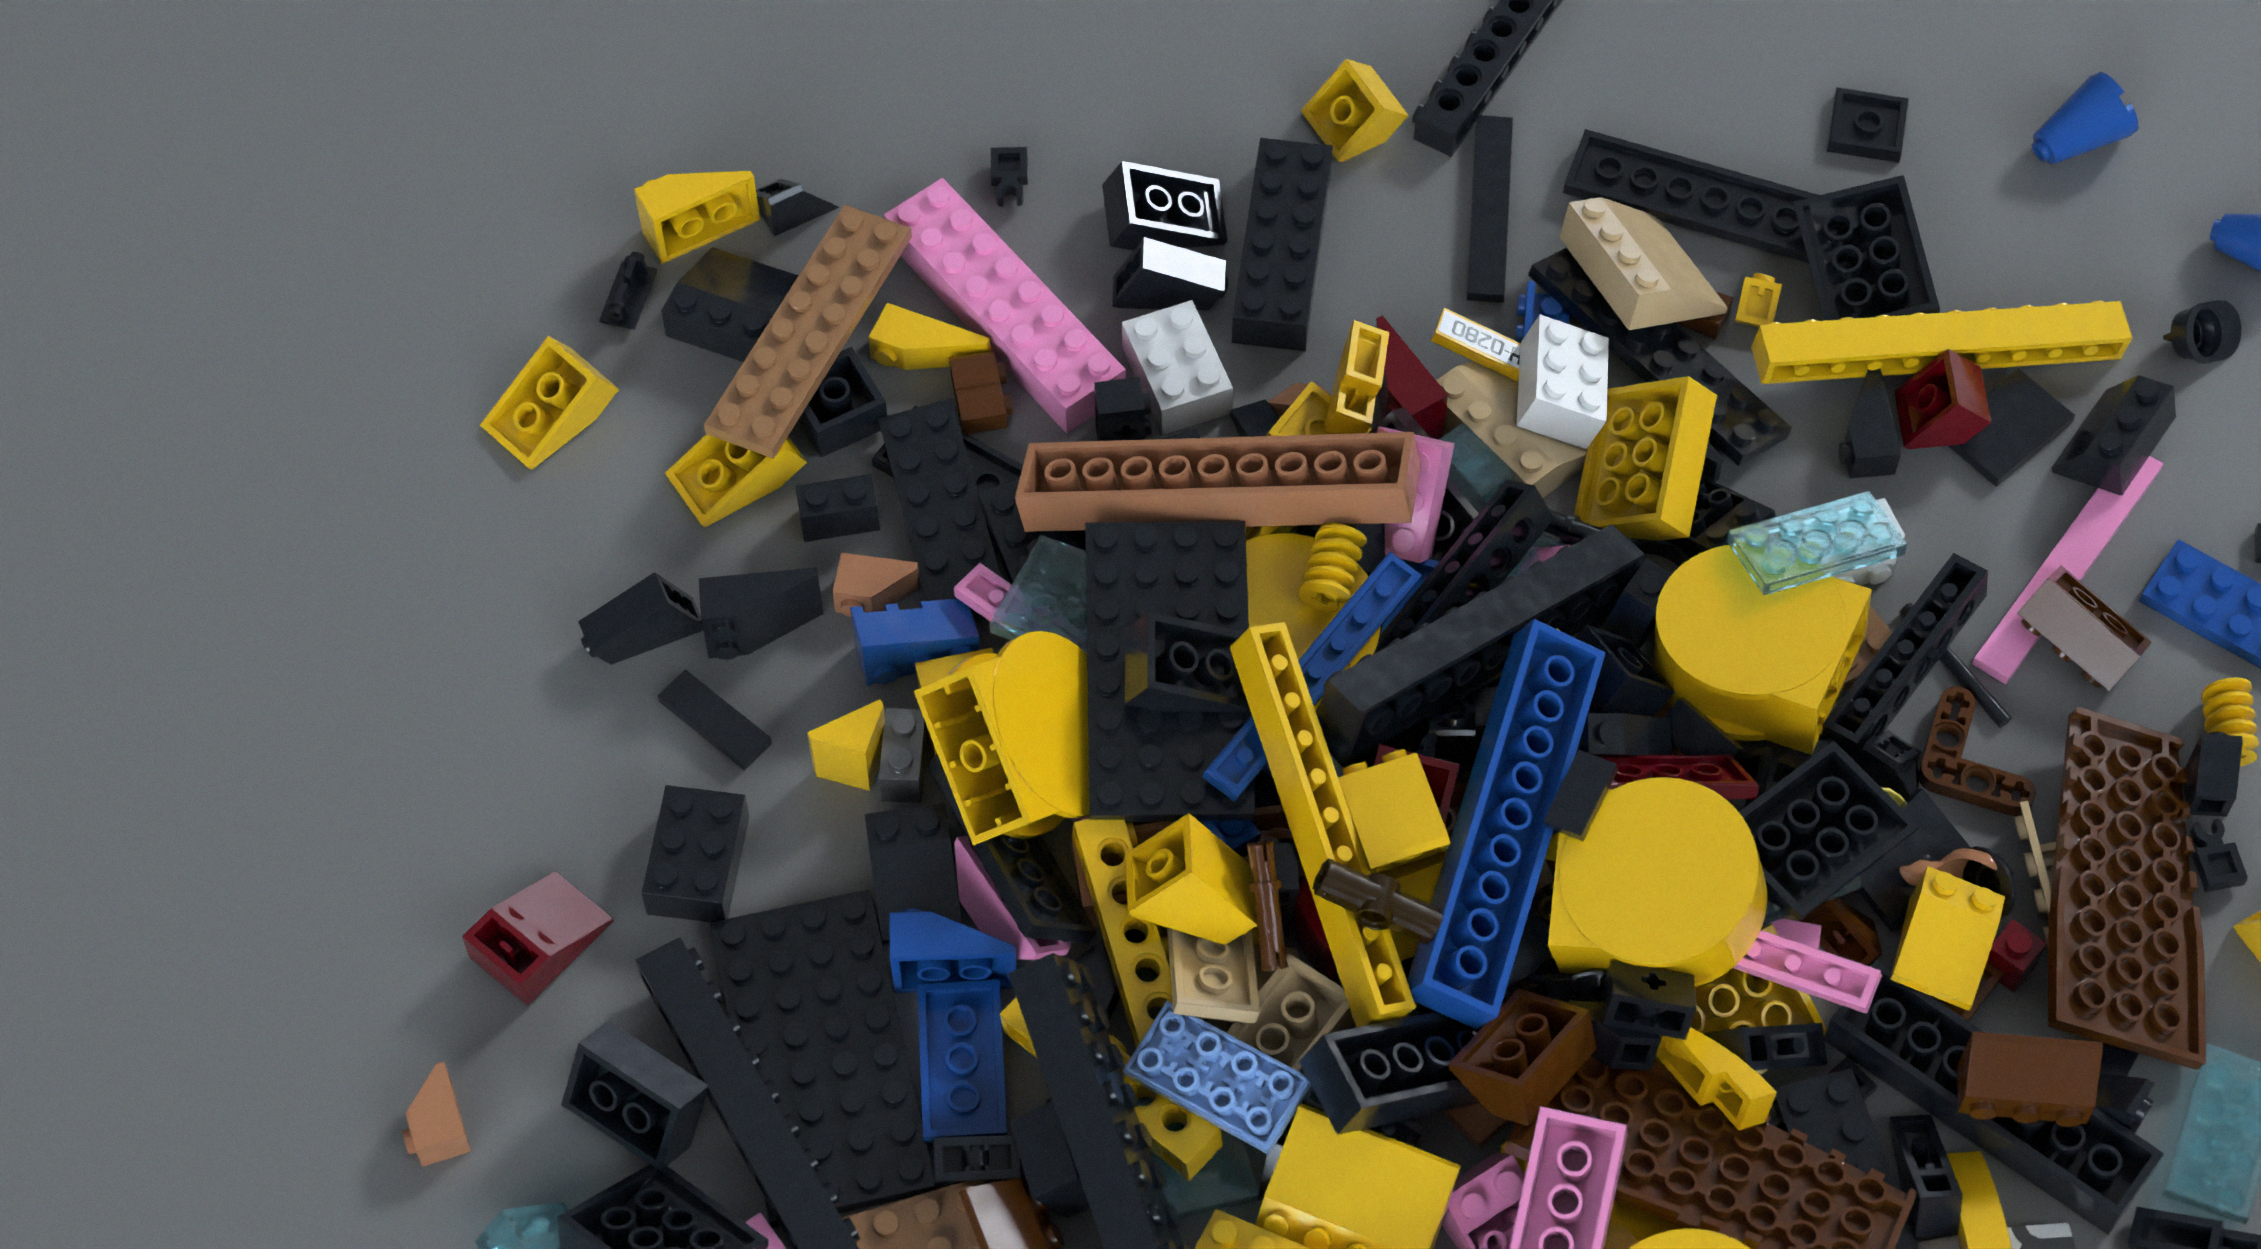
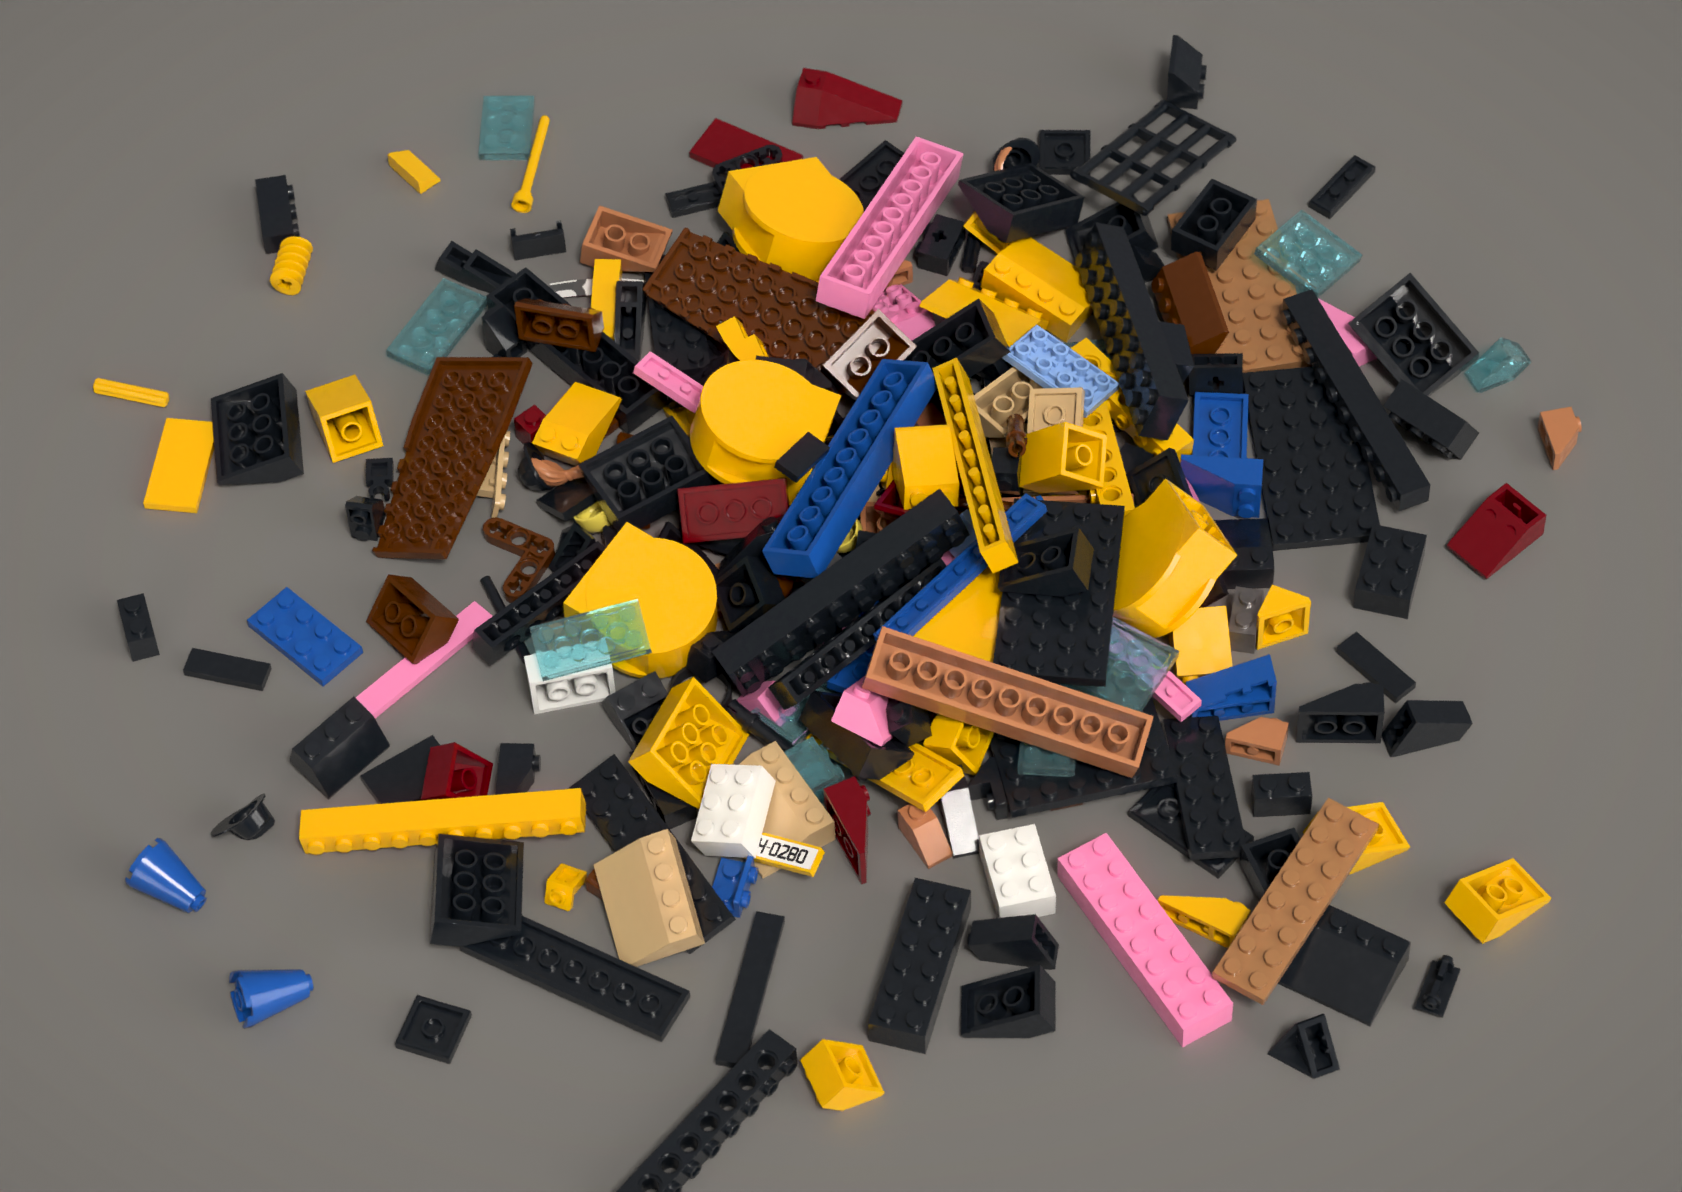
camera: 170 degrees left, 5 degrees down
(694, 209) = (1385, 1030): yellow slope -> none
(979, 392) = (1168, 870): reddish brown brick -> none
(1009, 172) = (1128, 1055): black plate -> none
(1122, 410) = (1063, 827): black brick -> none
(1331, 566) = (939, 624): yellow piece -> none
(1357, 380) = (888, 796): yellow slope -> none
(1377, 901) = (948, 402): dark brown piece -> none
(2230, 711) = (337, 554): yellow piece -> none

